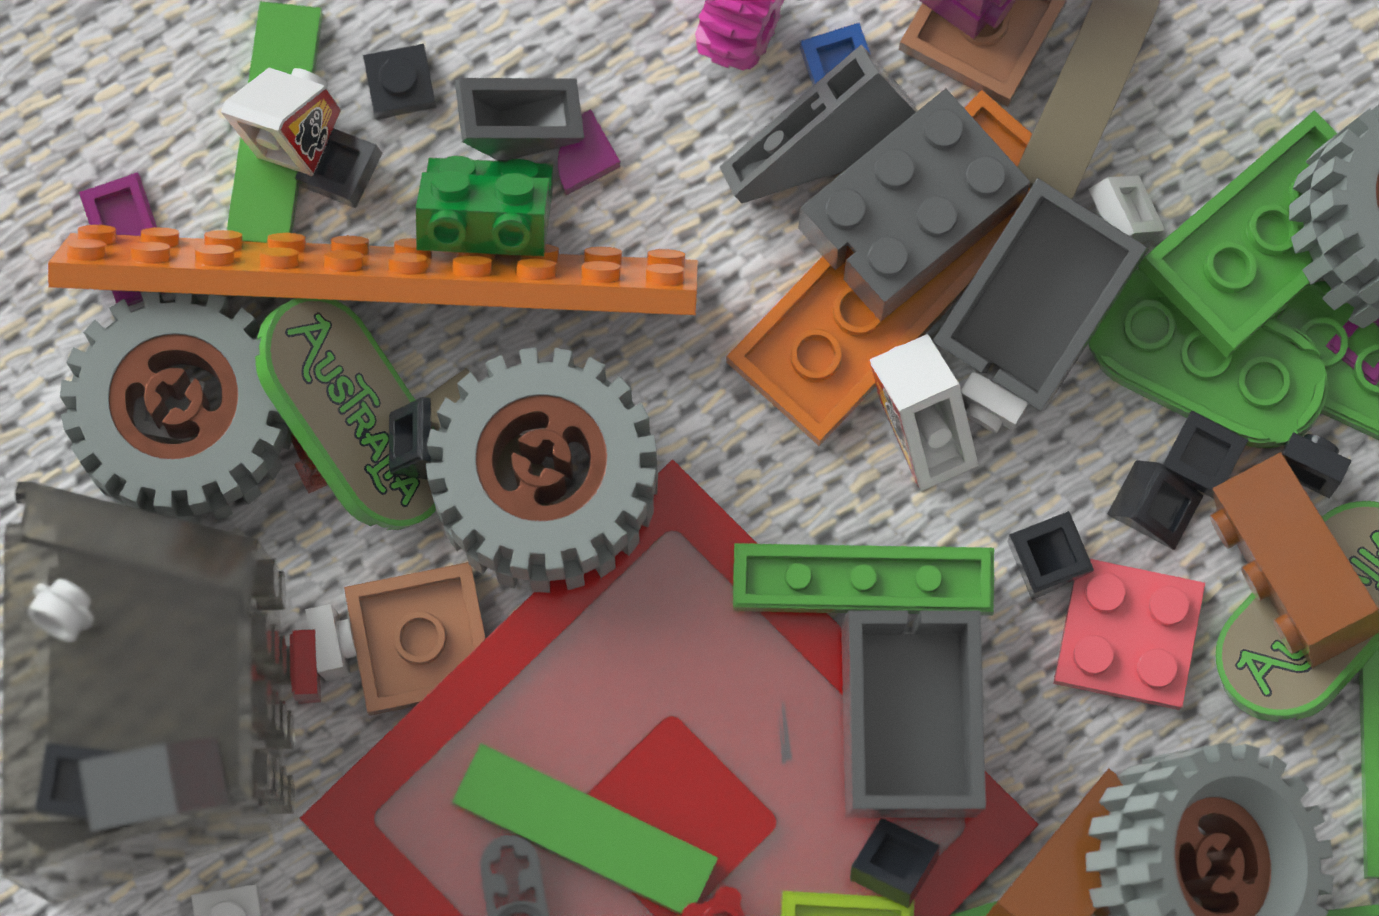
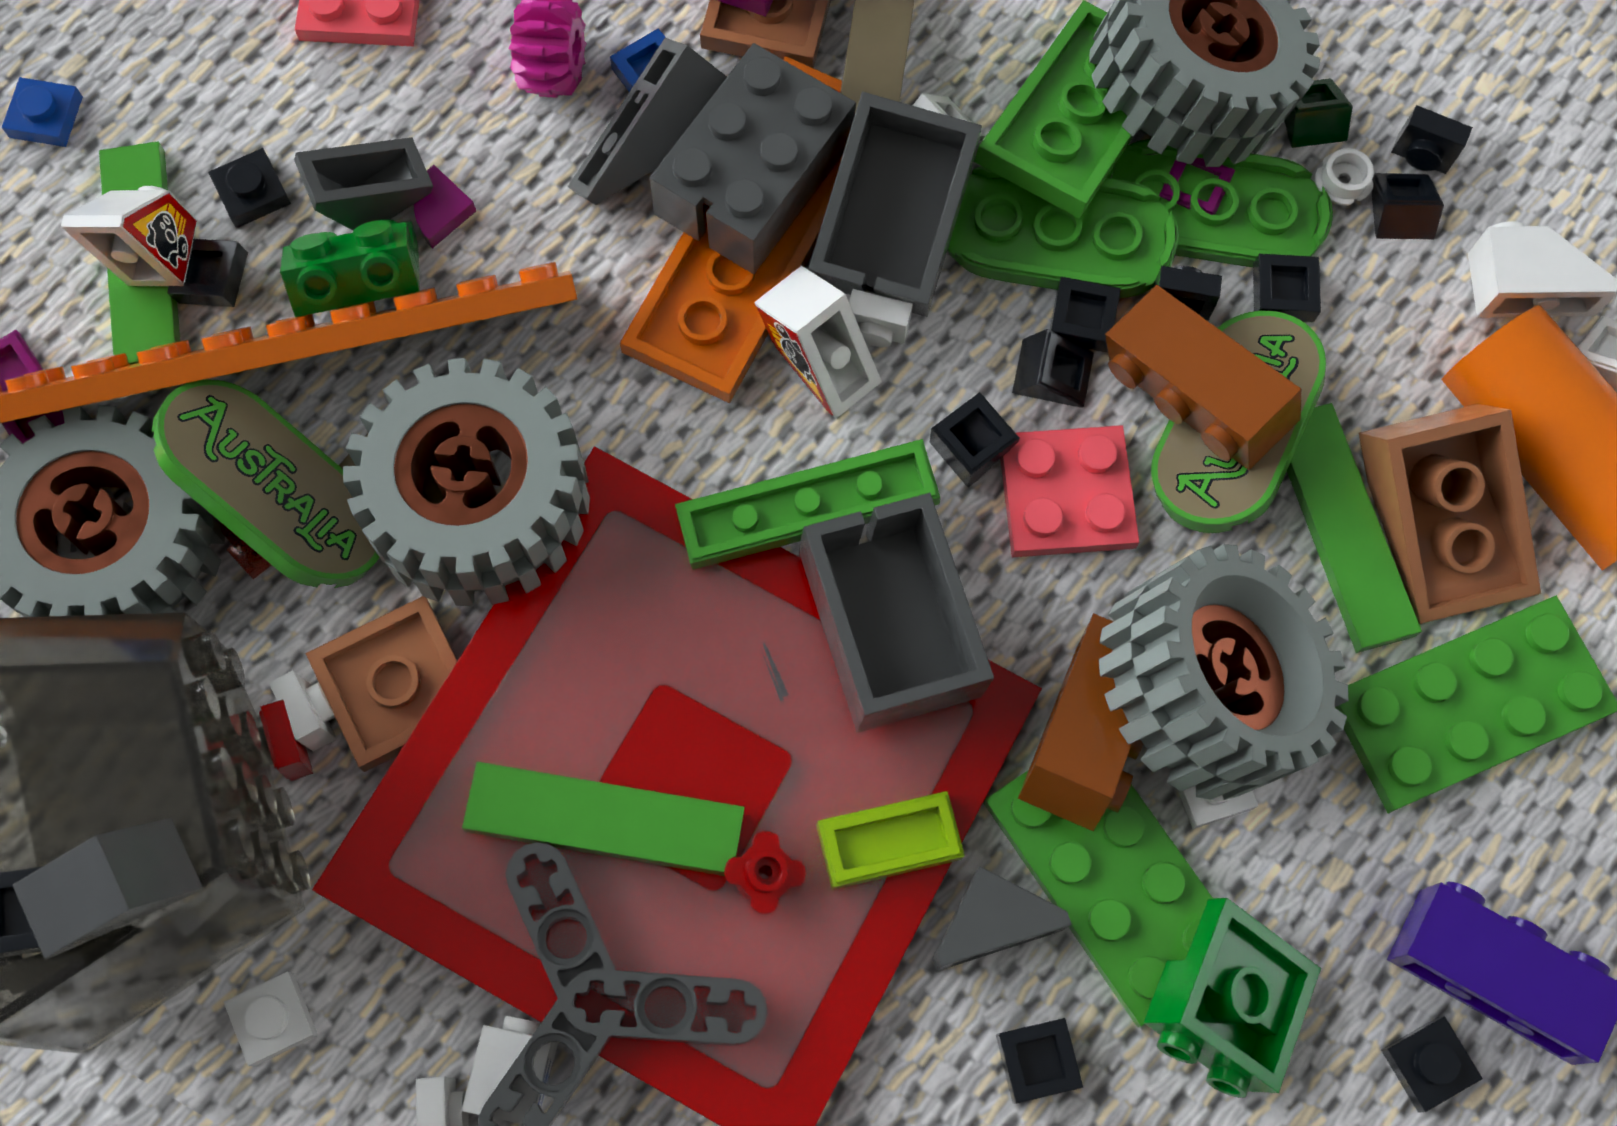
camera: 20 degrees left, 5 degrees down
(409, 438) = (330, 492): black slope -> none
(894, 862) = (918, 761): black plate -> none

